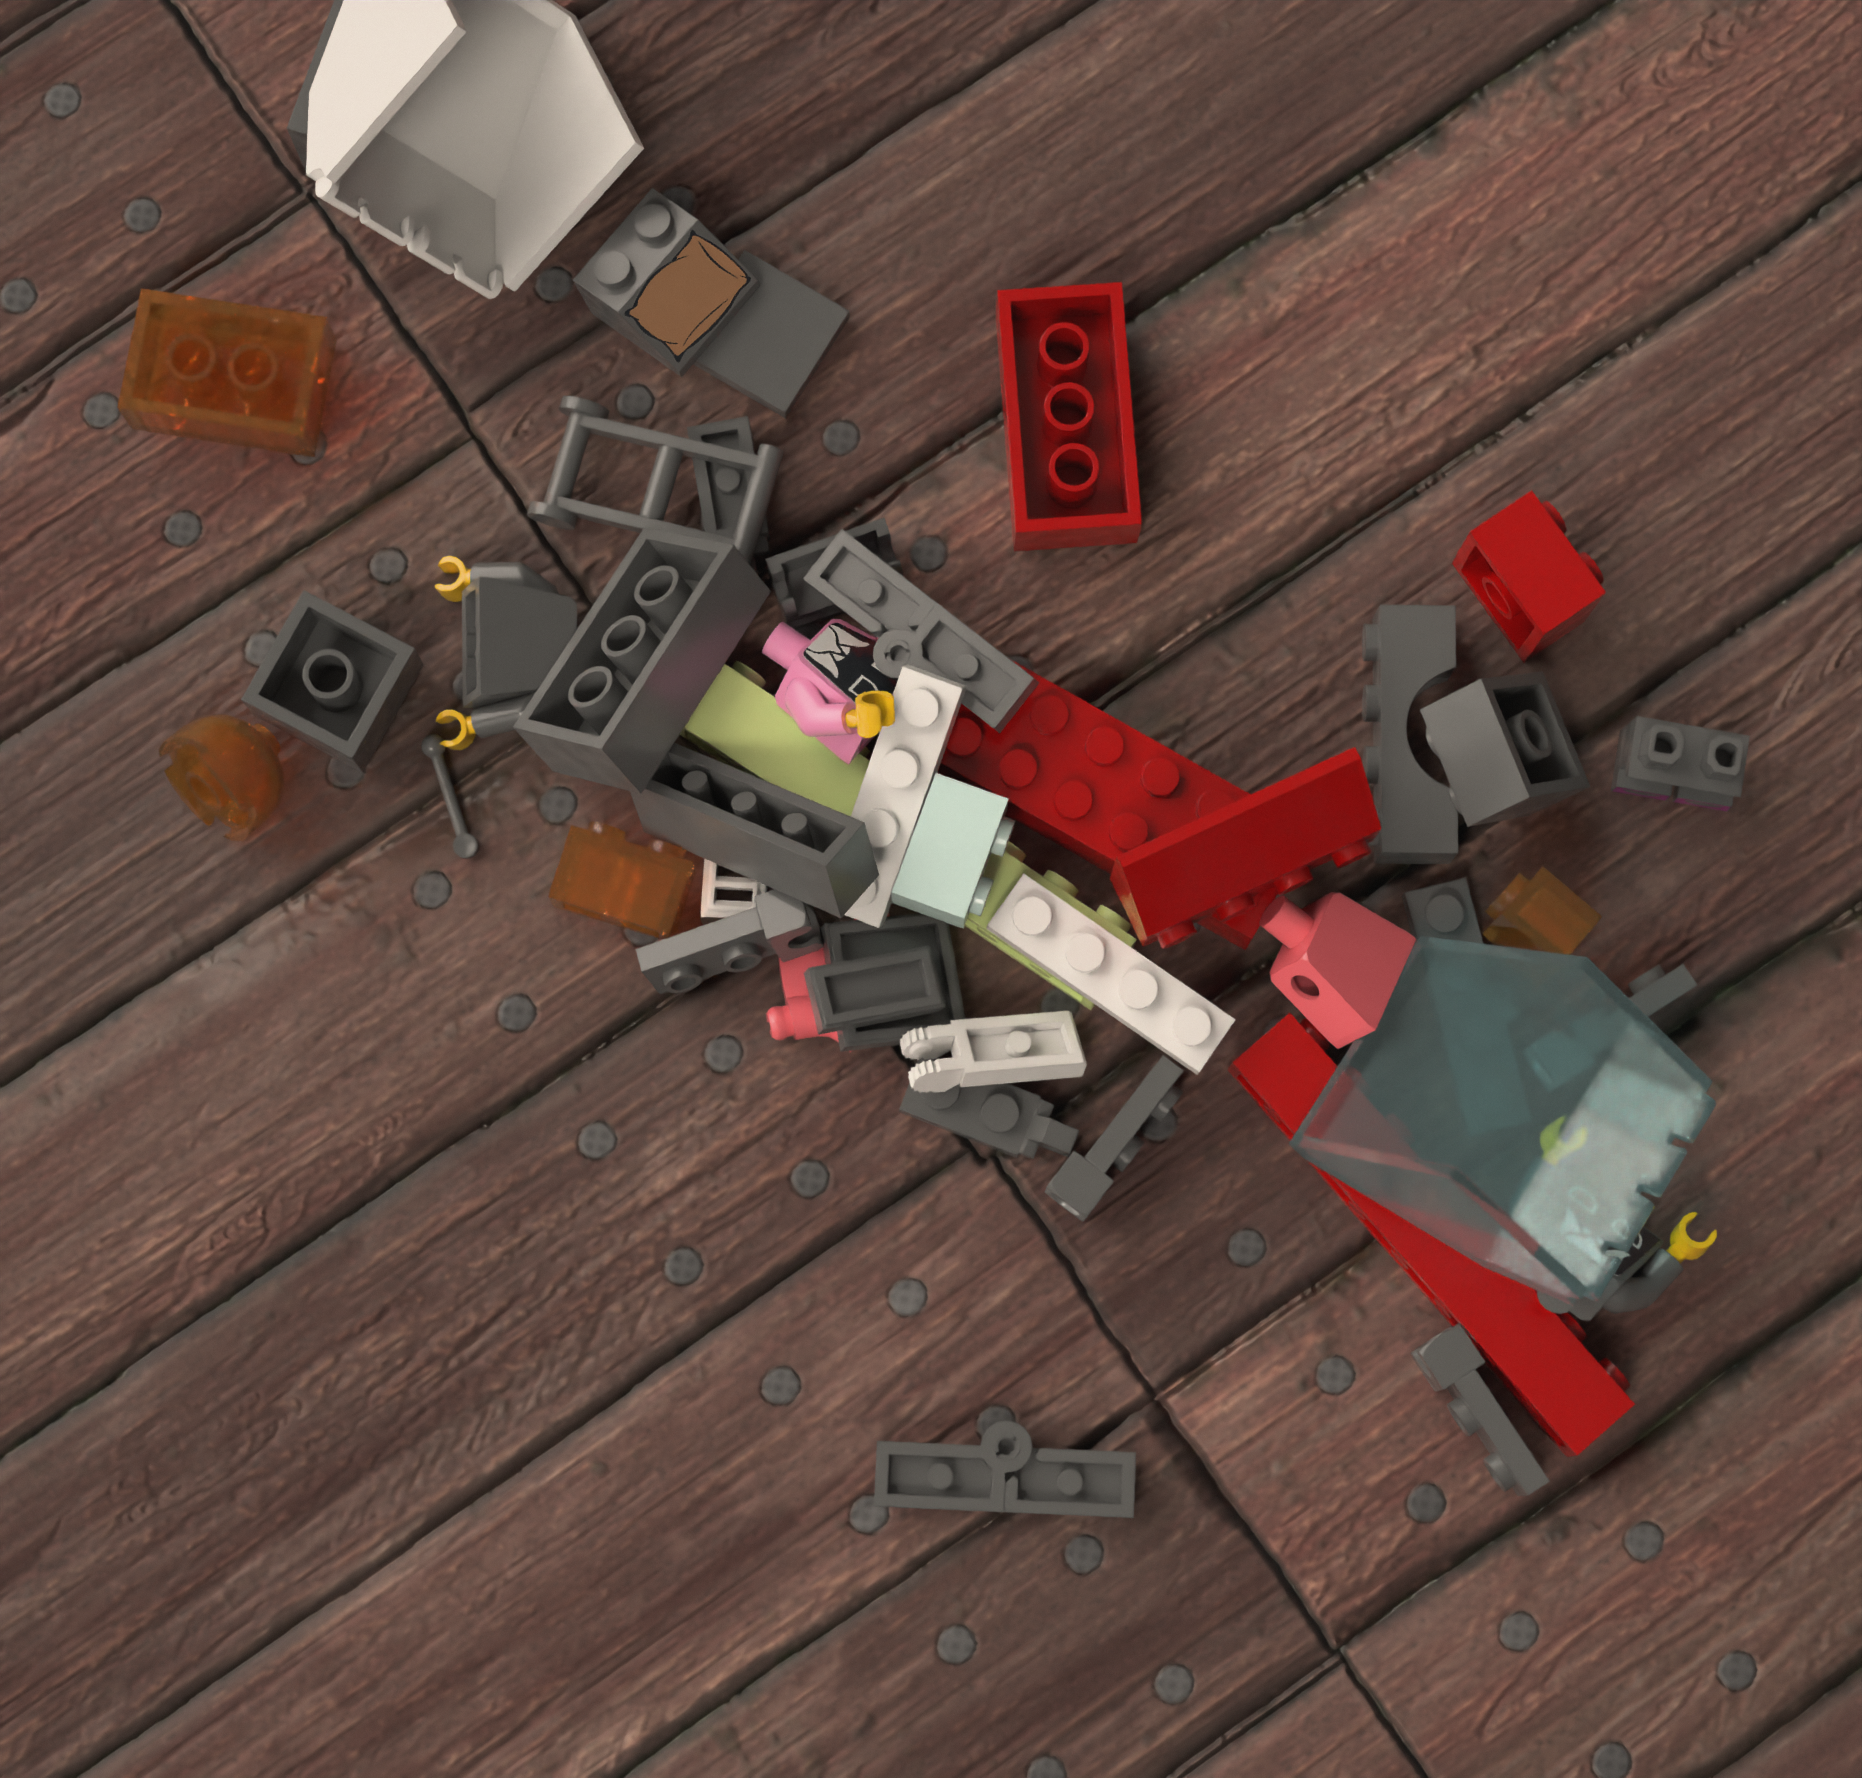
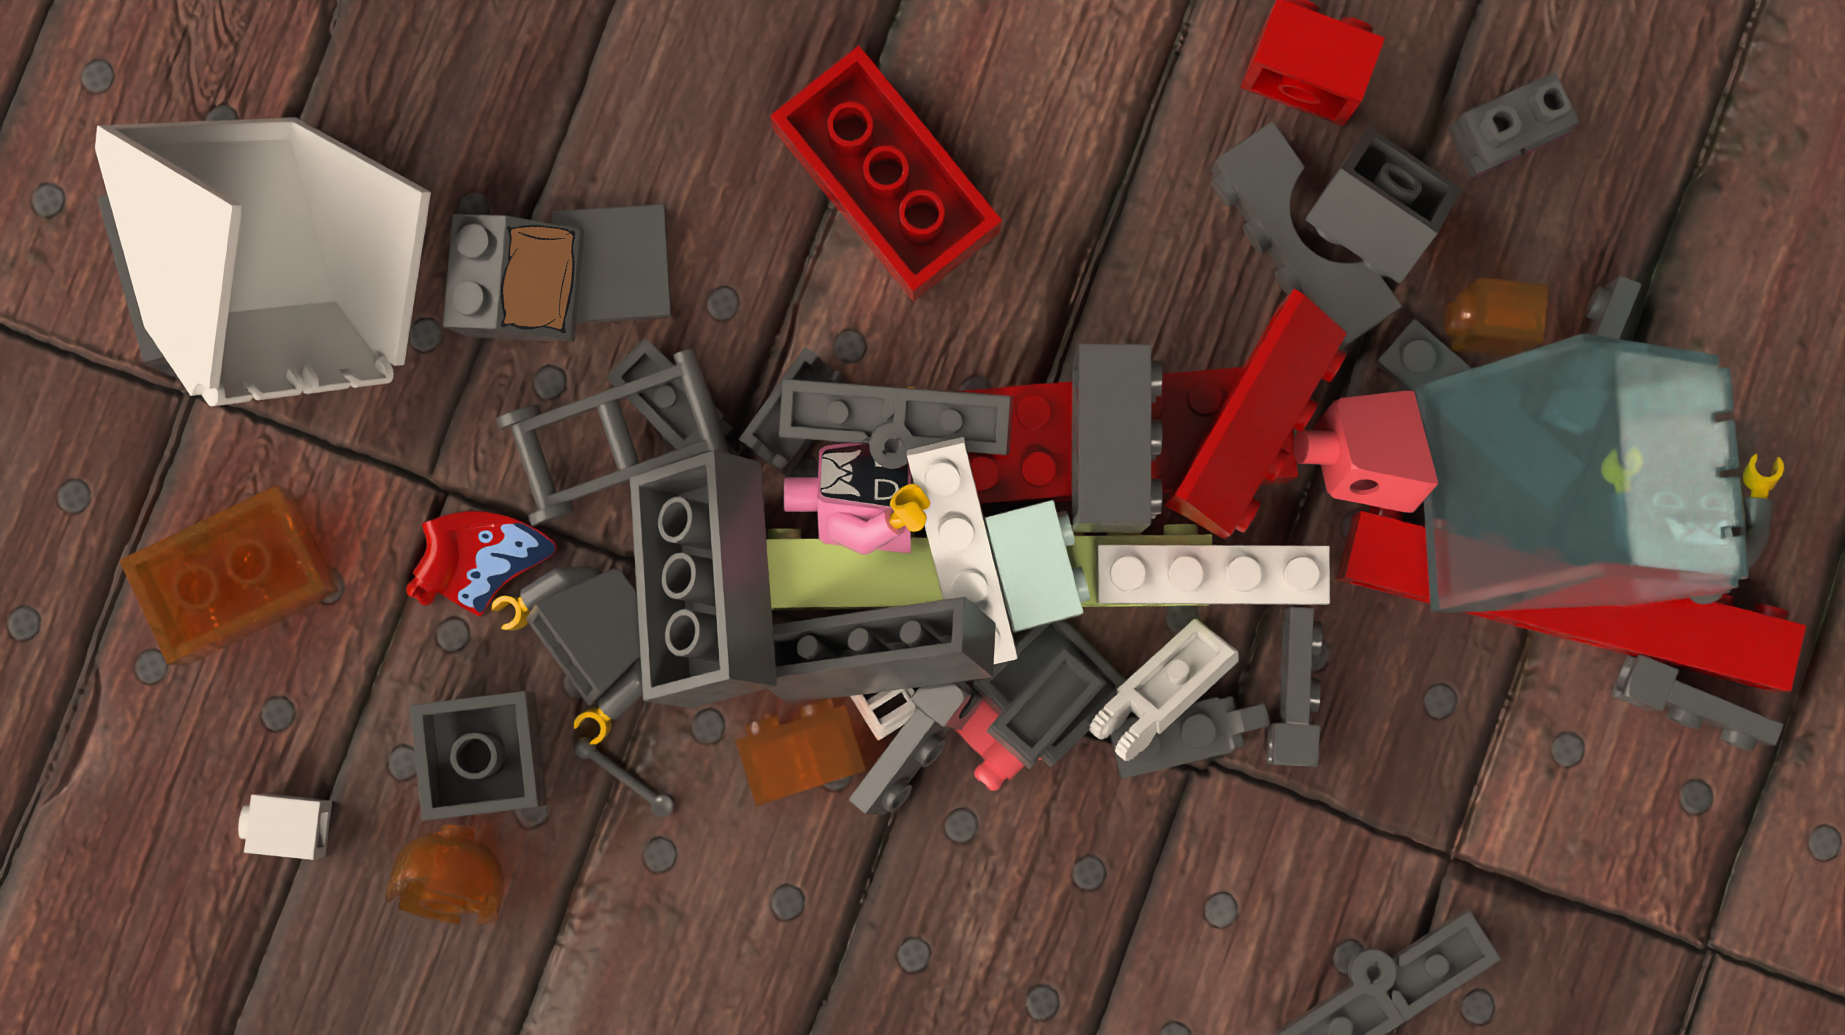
camera: 35 degrees left, 5 degrees up
(118, 628) = (285, 826): none -> white brick
(457, 509) = (474, 556): none -> arm
(1100, 778) = (1115, 438): none -> dark grey brick

